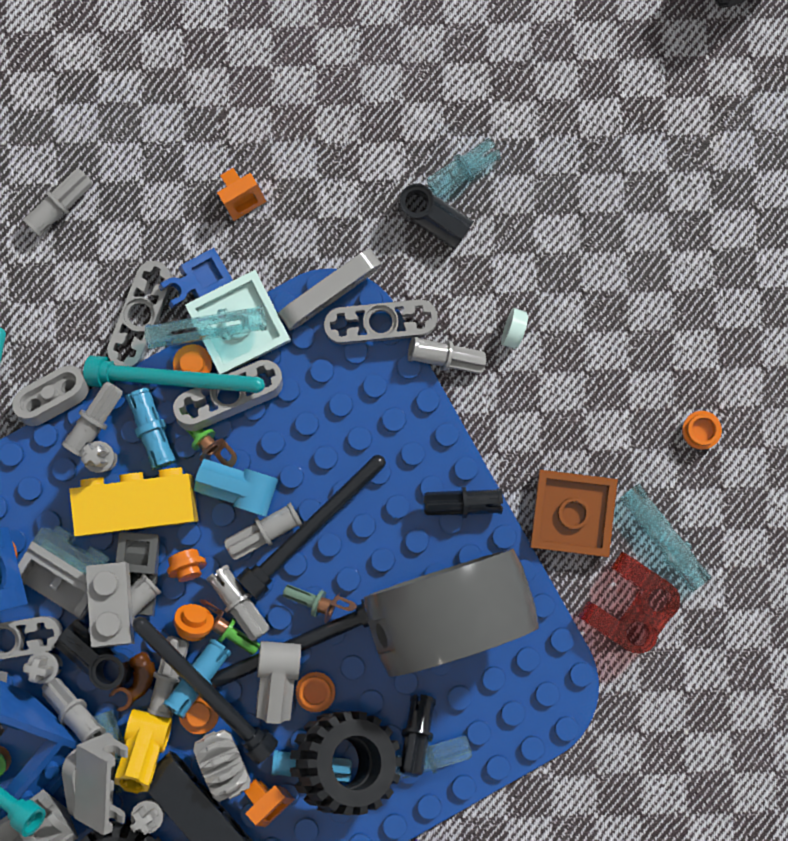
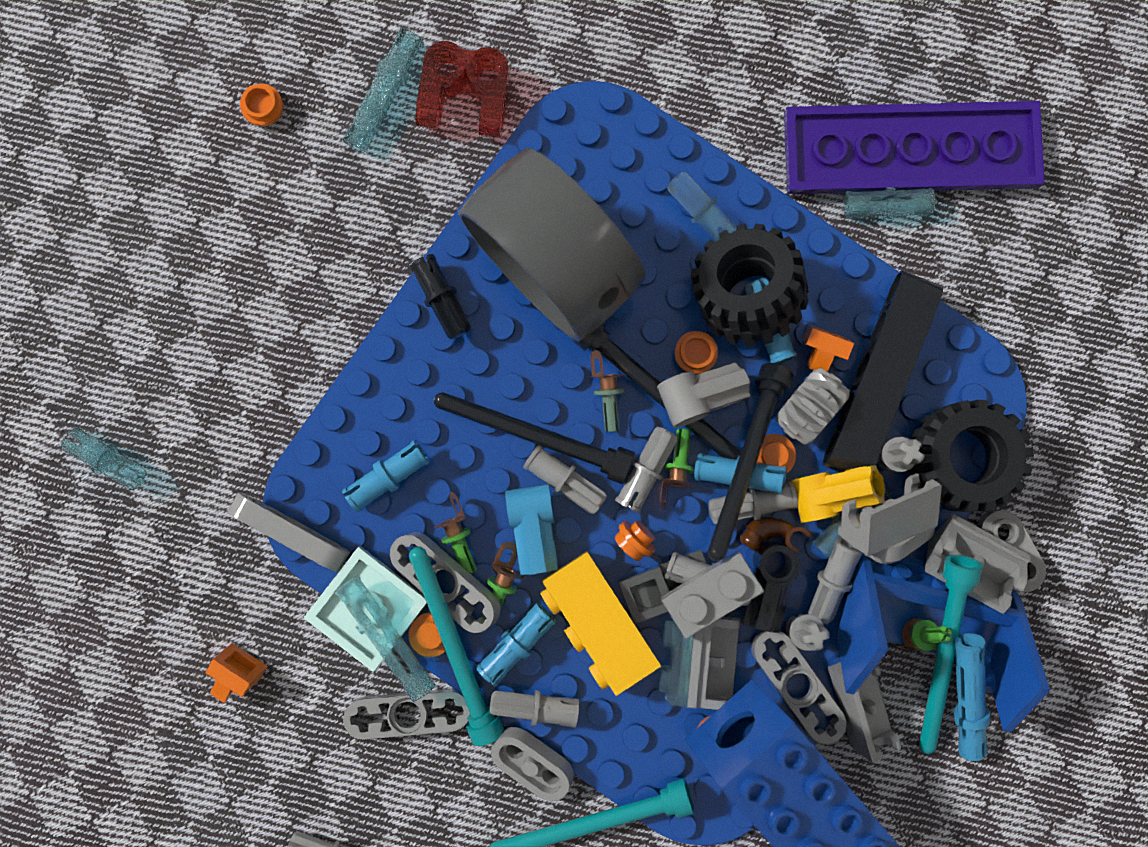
camera: 120 degrees left, 0 degrees up
(99, 457) = (569, 682): light grey axle -> none
(193, 622) = (687, 505): orange plate -> none
(199, 276) = (338, 672): blue plate -> none
(260, 421) = (456, 536): none -> piece
(337, 388) = (385, 476): none -> dark azure pin
(392, 334) = (273, 443): light grey beam -> none
(417, 735) = (689, 231): black axle -> none
(438, 218) = (166, 459): black piece -> none
(446, 355) = (303, 385): light grey axle -> none
(514, 328) = (244, 330): light aqua tile -> none
(573, 513) = (401, 188): dark orange plate -> none

